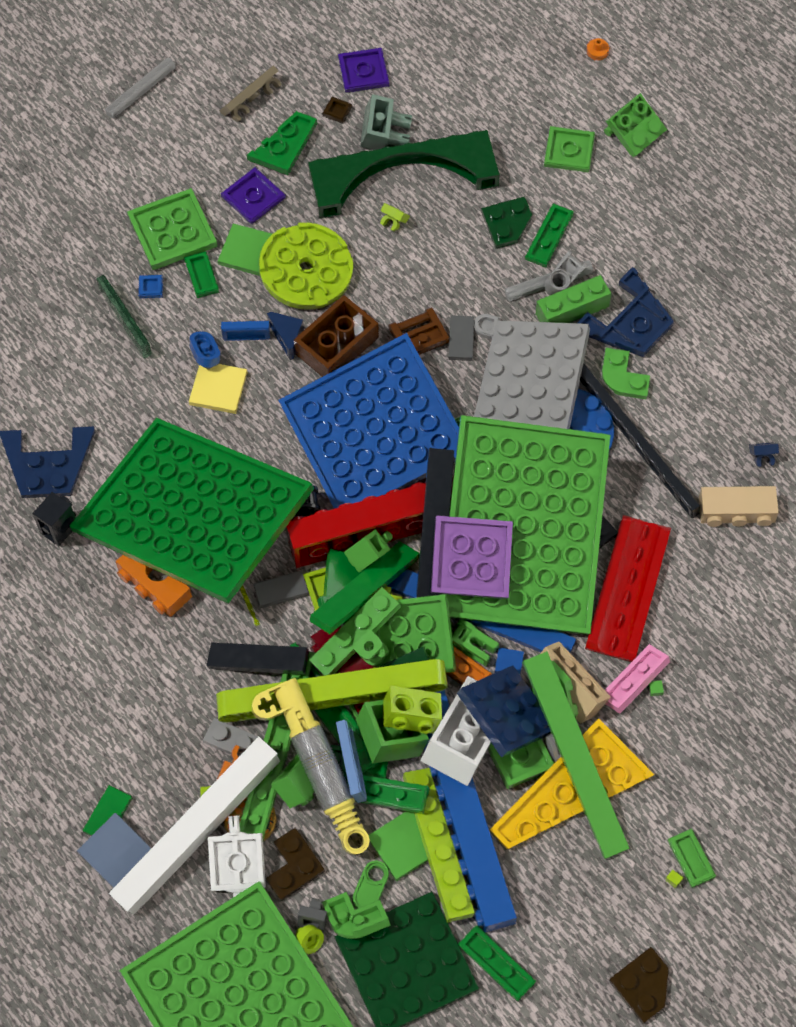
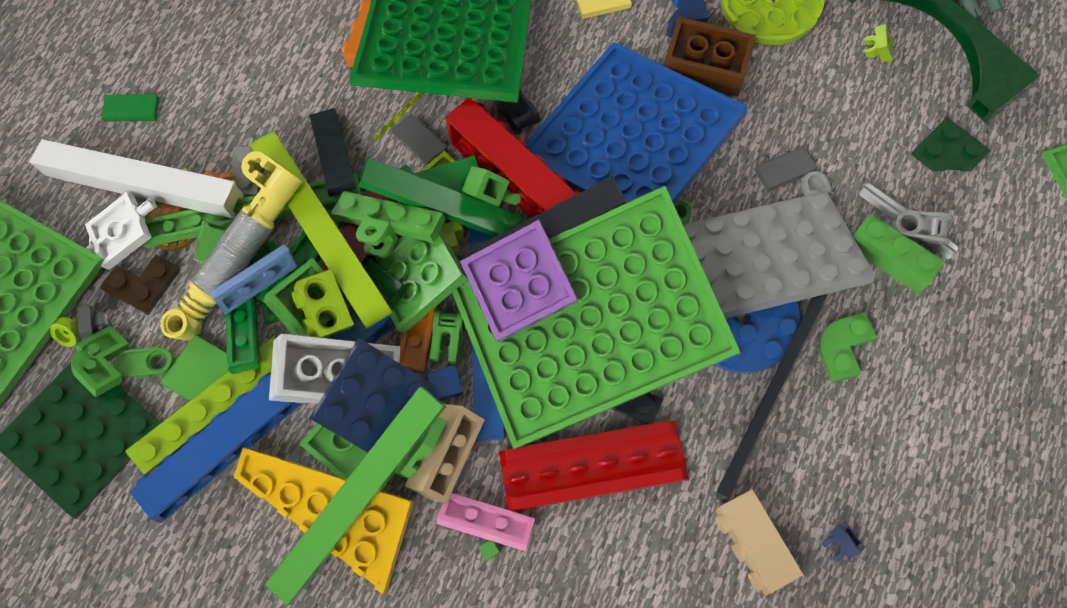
camera: 65 degrees right, 5 degrees up
(113, 850) = (94, 125): sand blue tile -> none
(425, 337) = (762, 134): reddish brown plate -> none
(496, 963) = (107, 525): green tile -> none
(549, 235) = (962, 196): green tile -> none
(638, 324) = (914, 332): dark blue wing -> none

